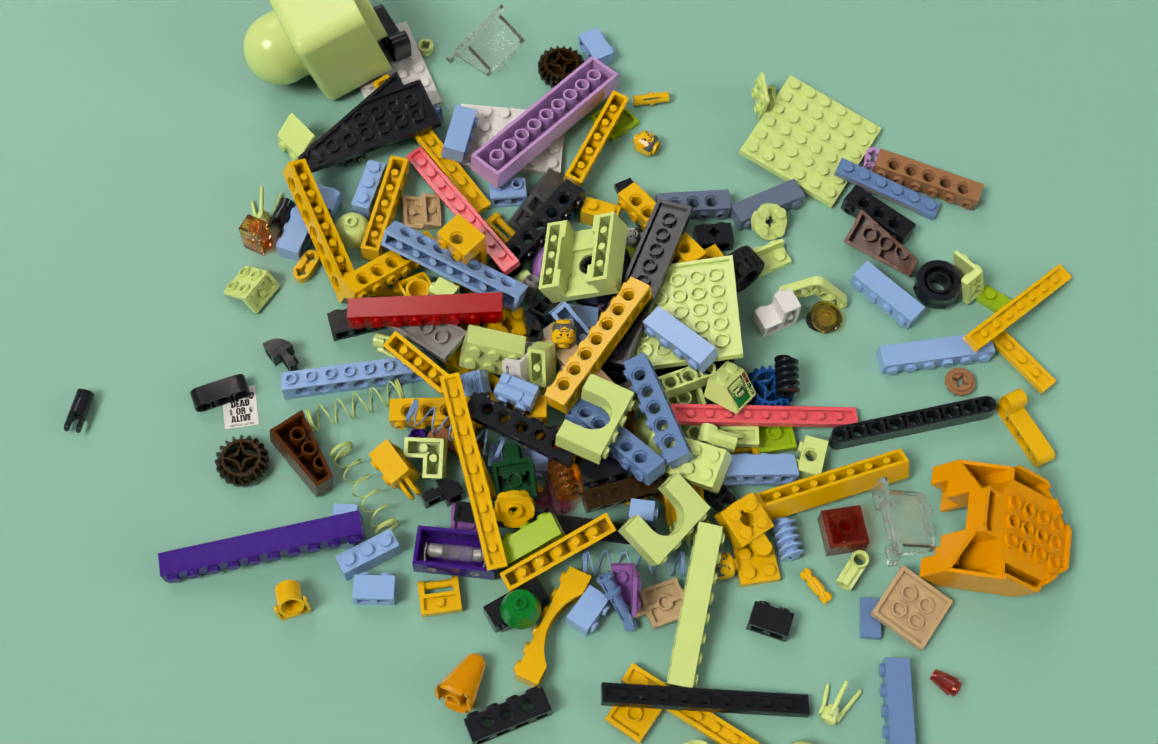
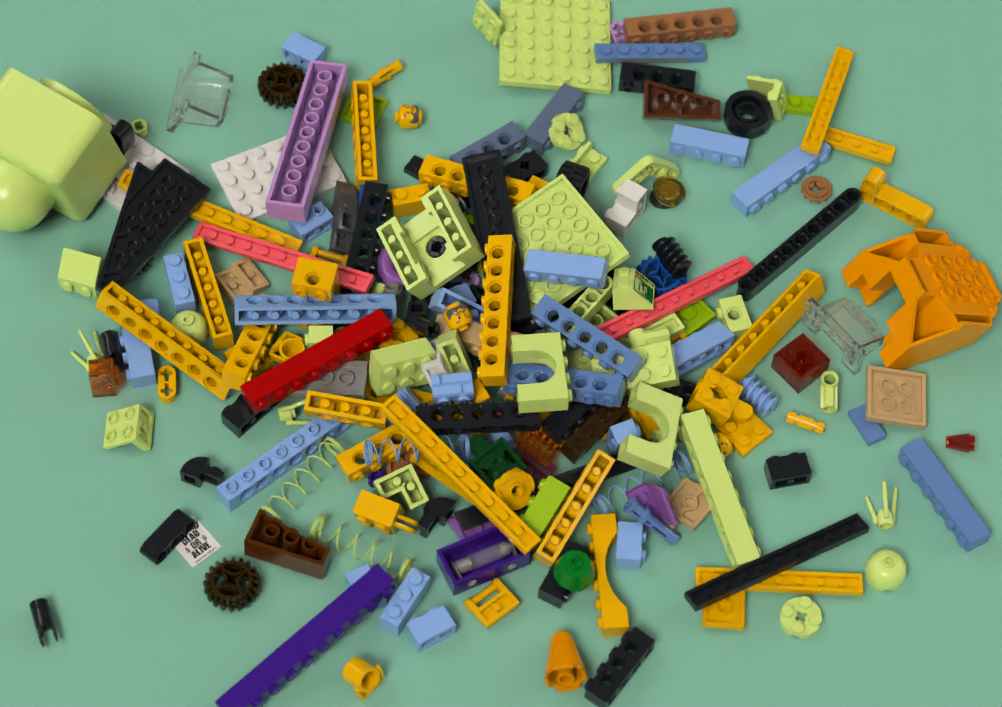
camera: 30 degrees left, 5 degrees down
(459, 133) = (233, 190): light blue brick -> none

